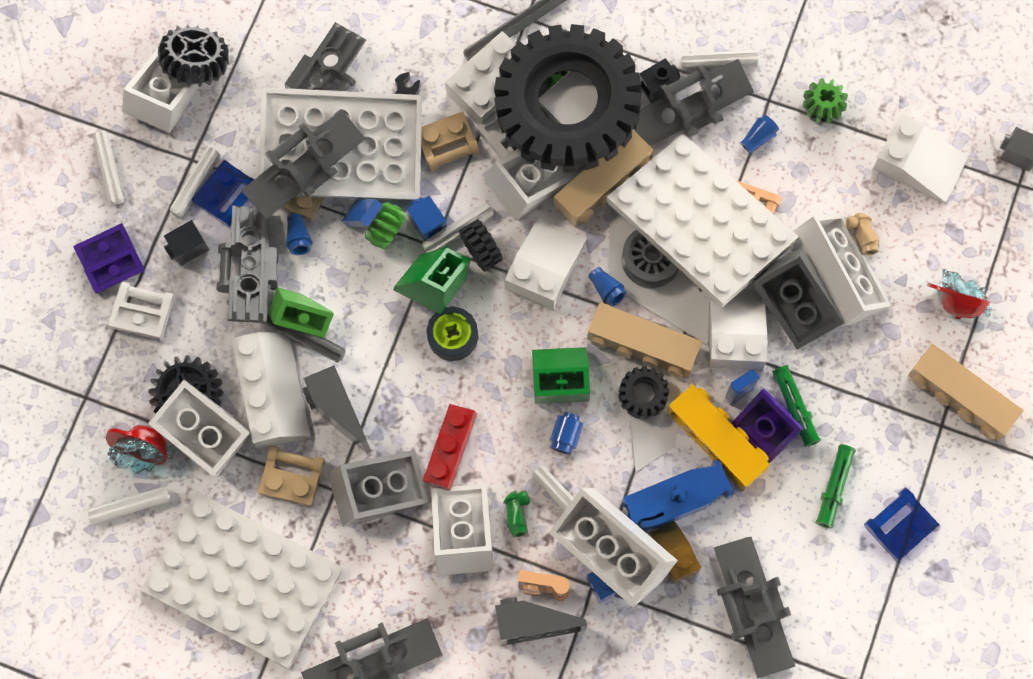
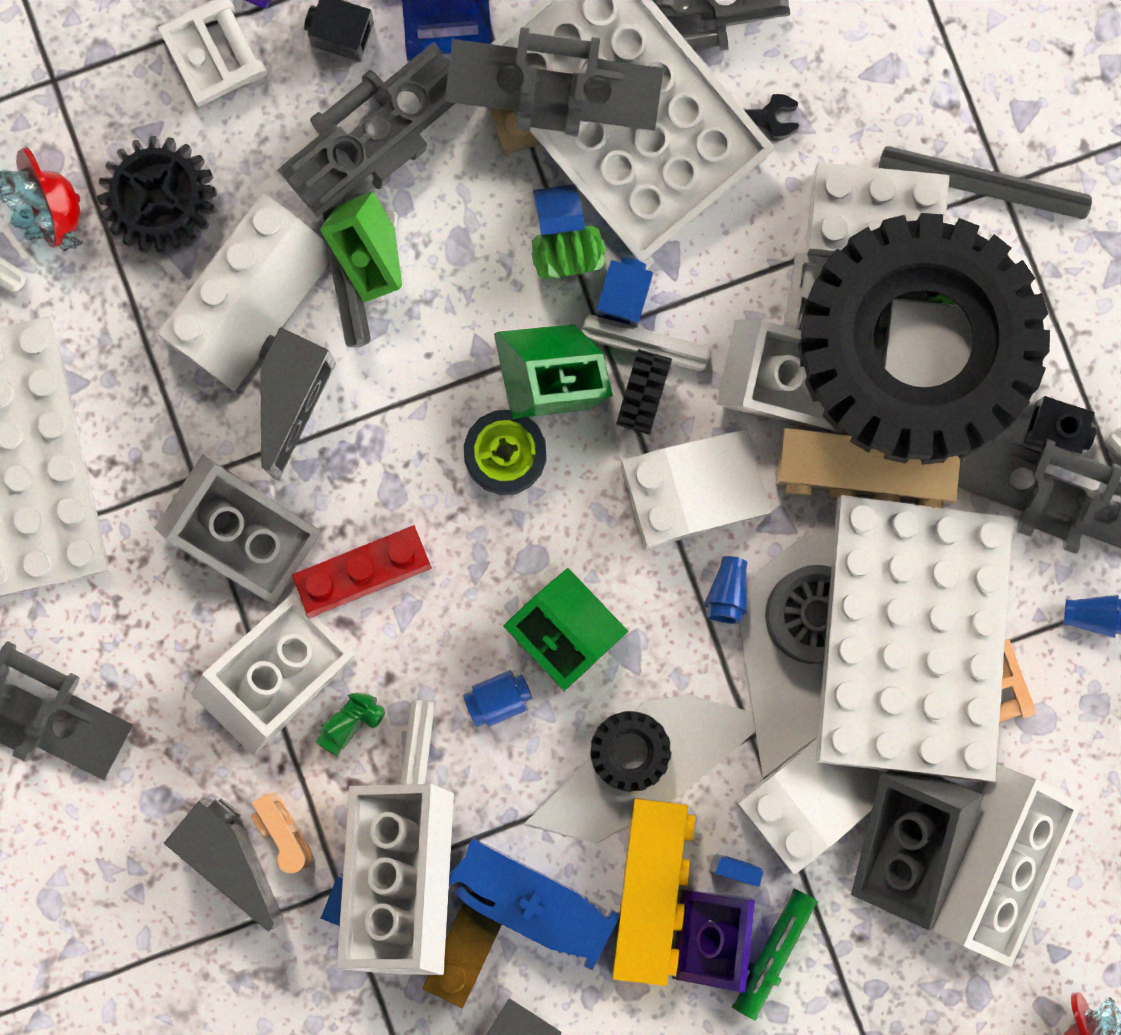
camera: 45 degrees right, 10 degrees up
(200, 428) = (120, 255): white slope -> none
(289, 485) = (152, 418): tan plate -> none
(298, 237) = (465, 156): blue cone -> none
(445, 134) = (755, 218): tan plate -> none
(643, 340) = (697, 696): tan brick -> none
(864, 232) = (1078, 858): tan arm -> none

